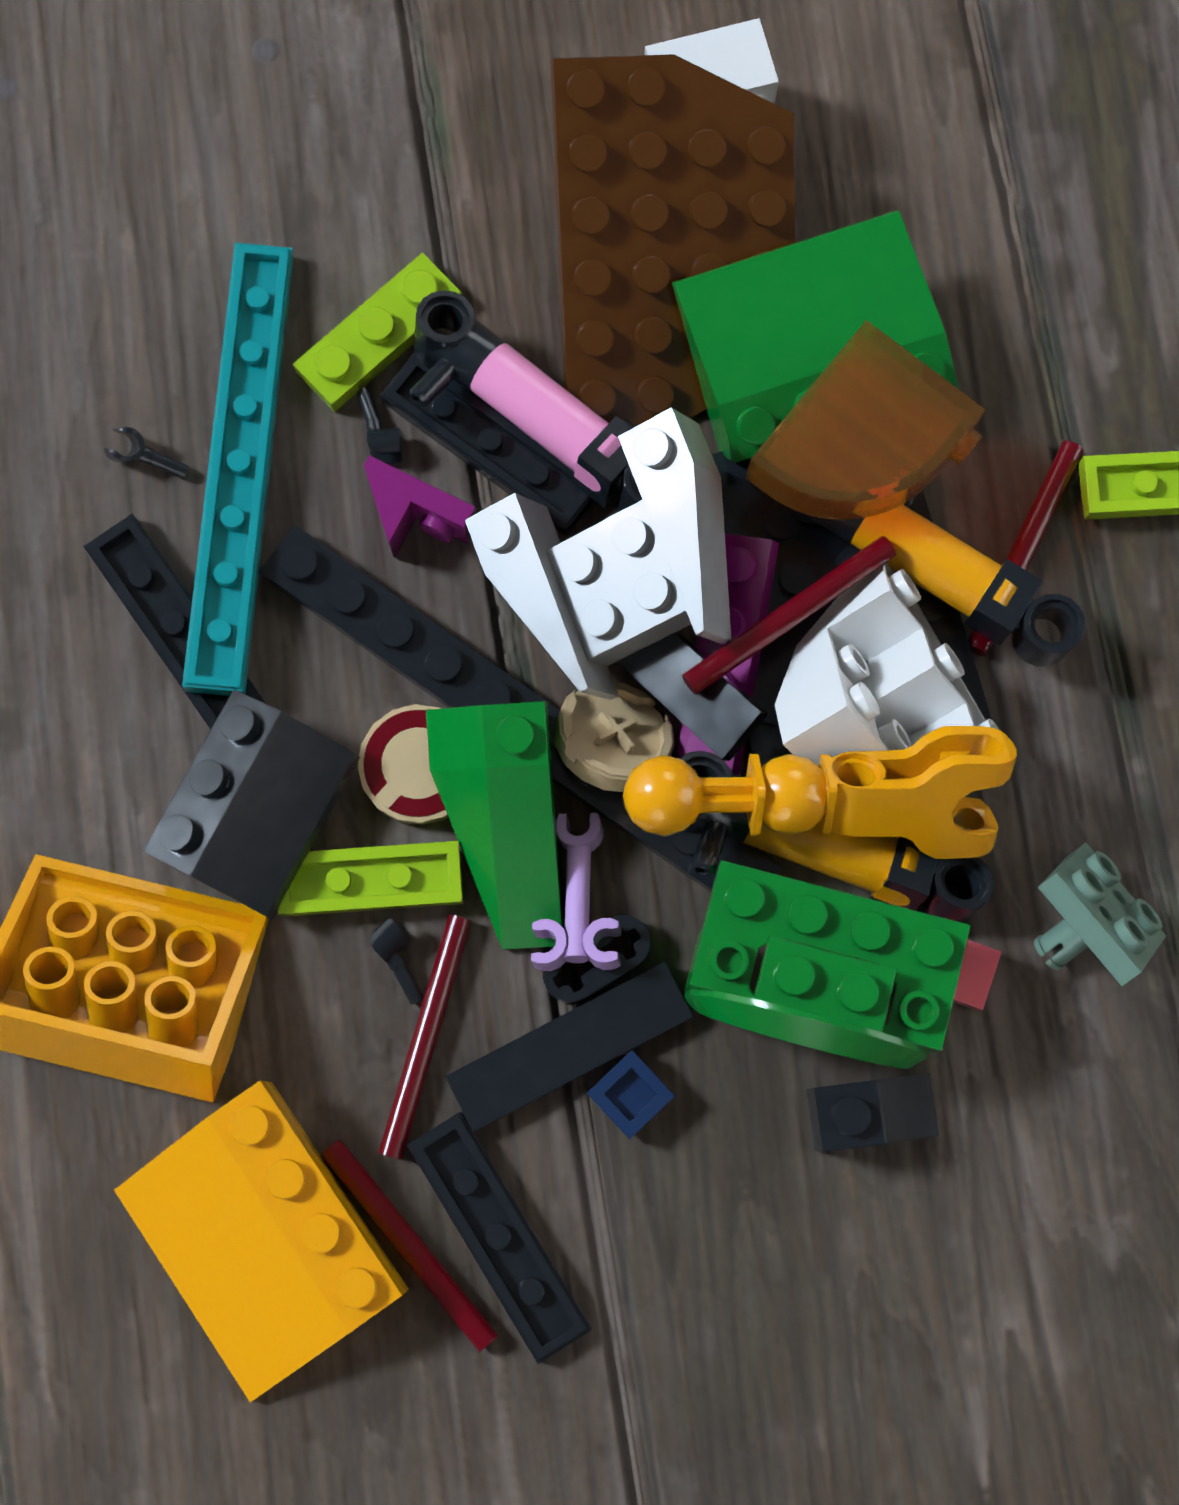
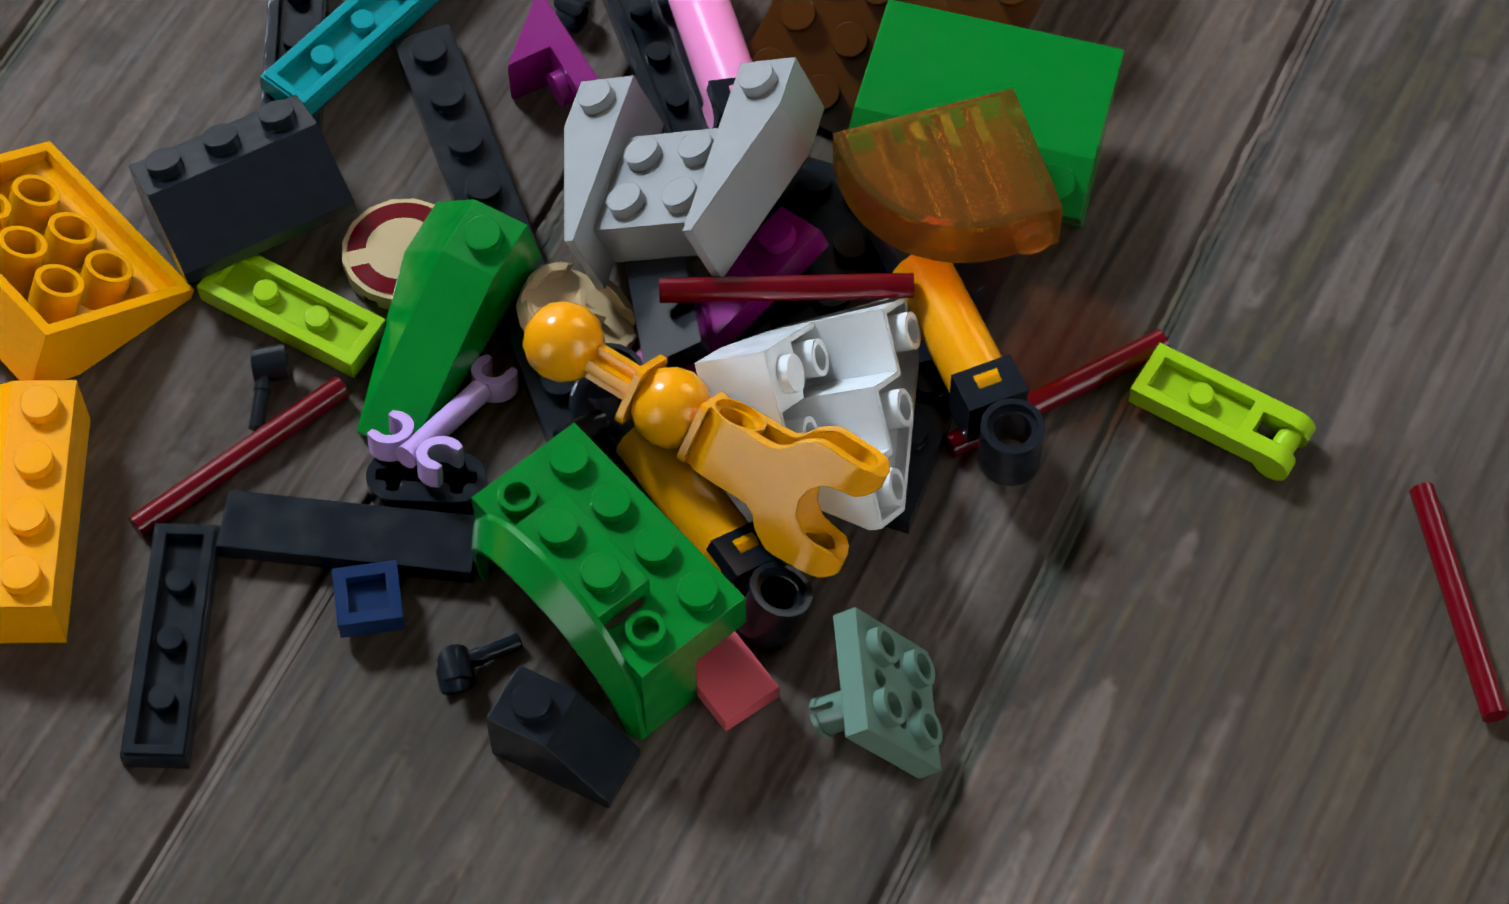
camera: 35 degrees right, 20 degrees down
(409, 1245) = (94, 606): dark red bar -> none
(740, 1105) = (457, 663): none -> black hand

